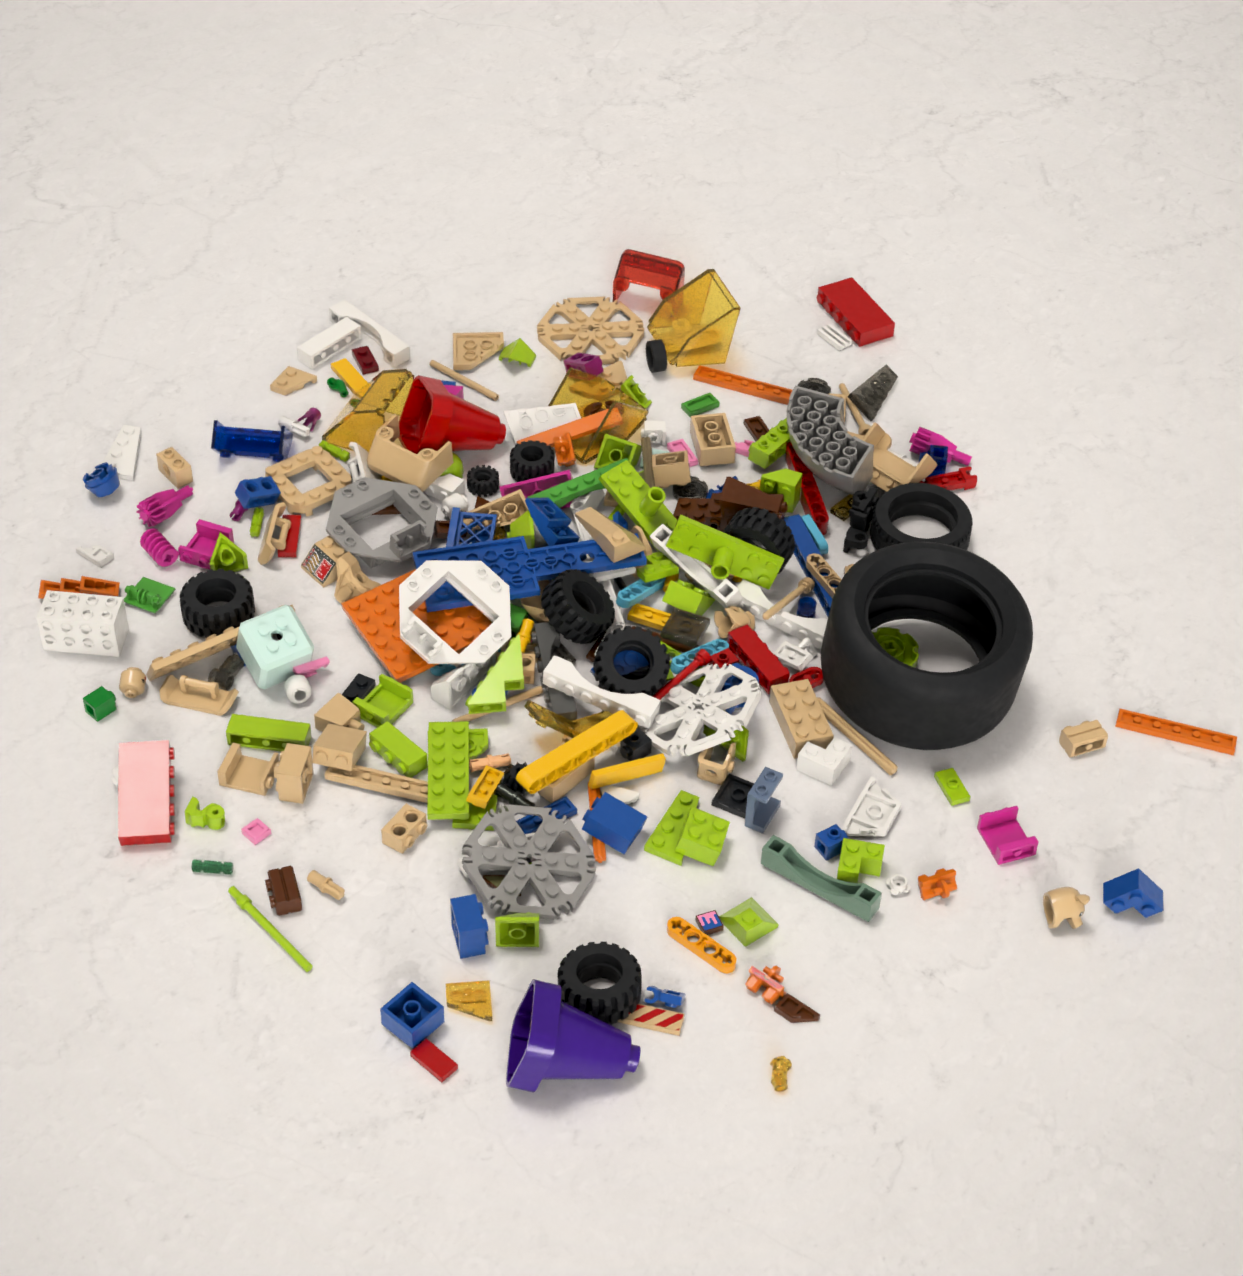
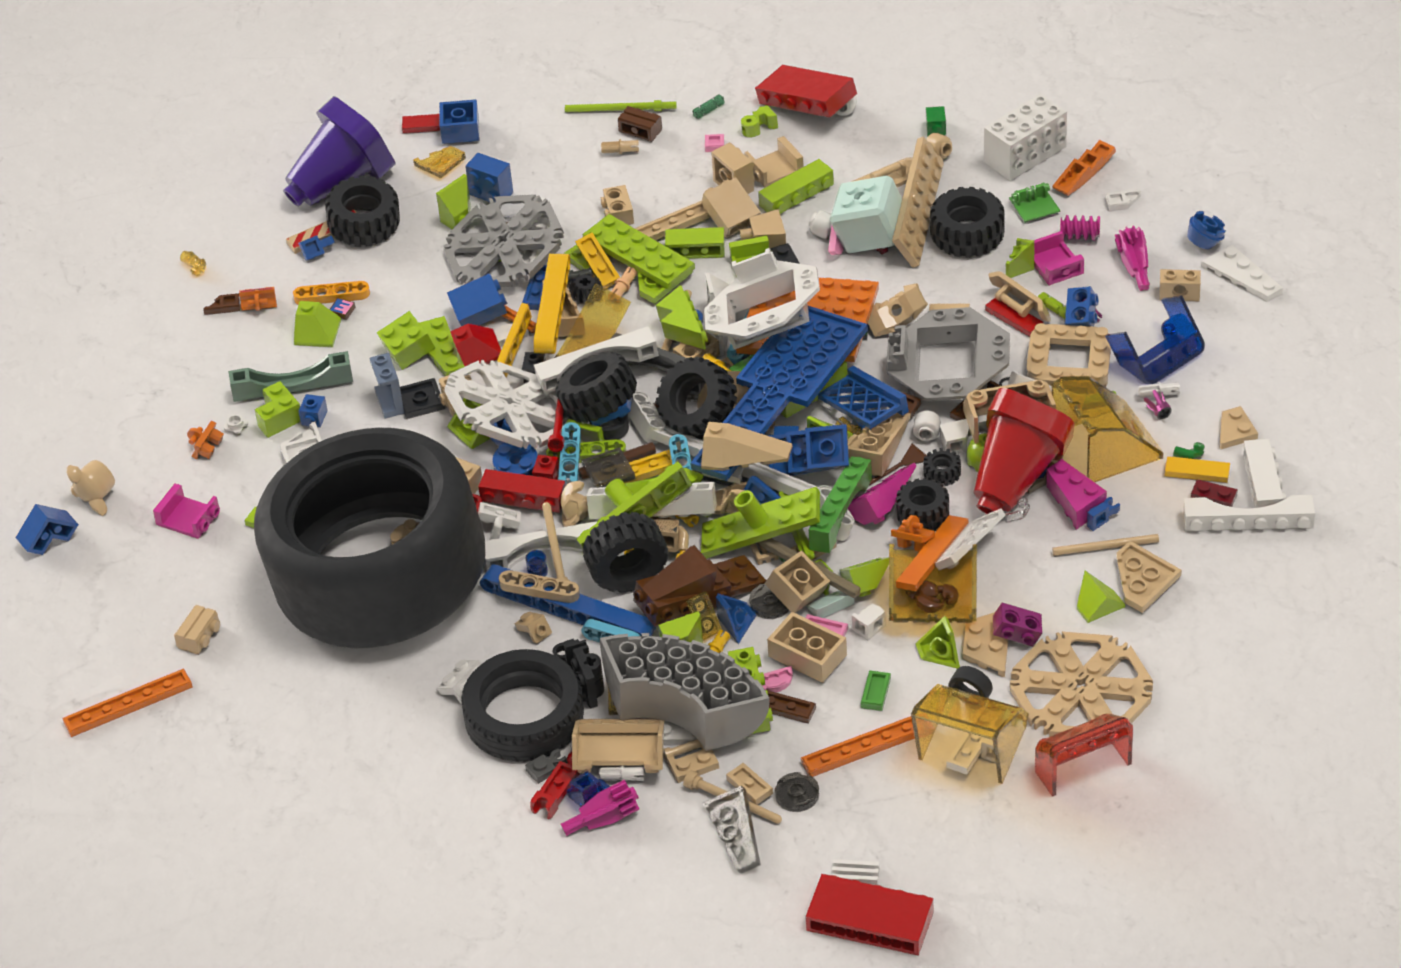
camera: 140 degrees right, 0 degrees up
(652, 795) = (476, 344): none -> red slope

